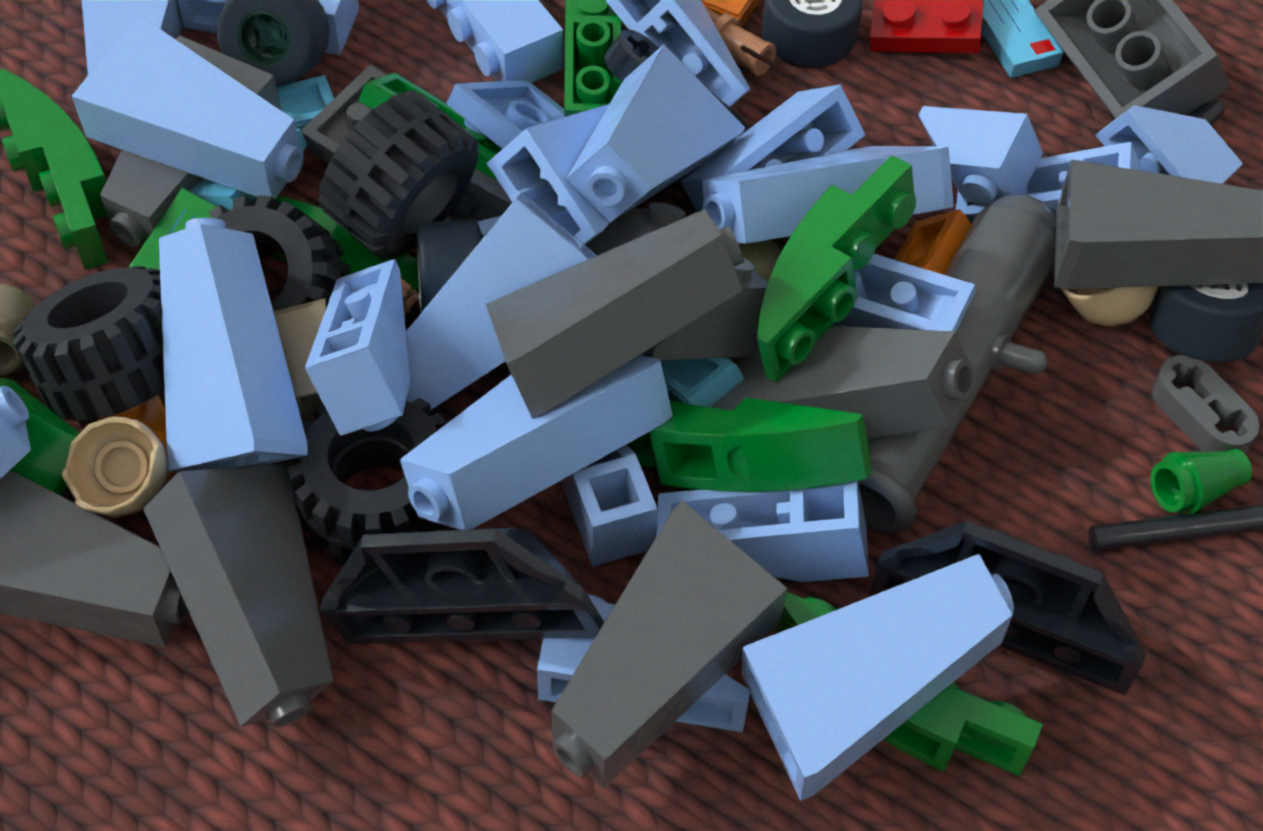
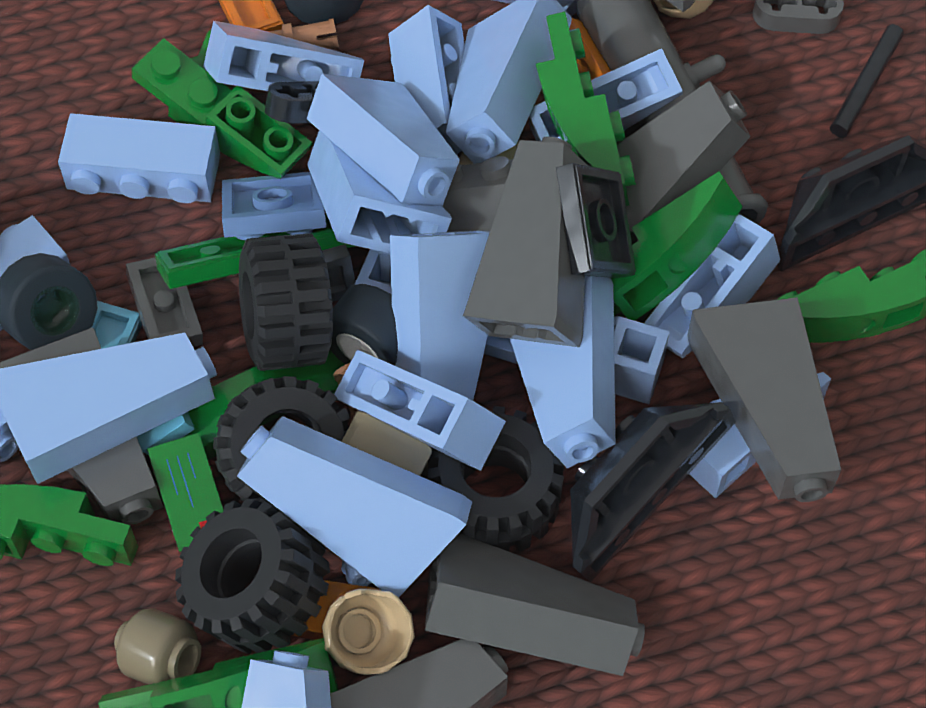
camera: 50 degrees left, 5 degrees up
(681, 335) = (595, 221): none -> black tile
(870, 666) = (870, 300): light blue slope -> none
(1195, 479) = (845, 50): green cone -> none

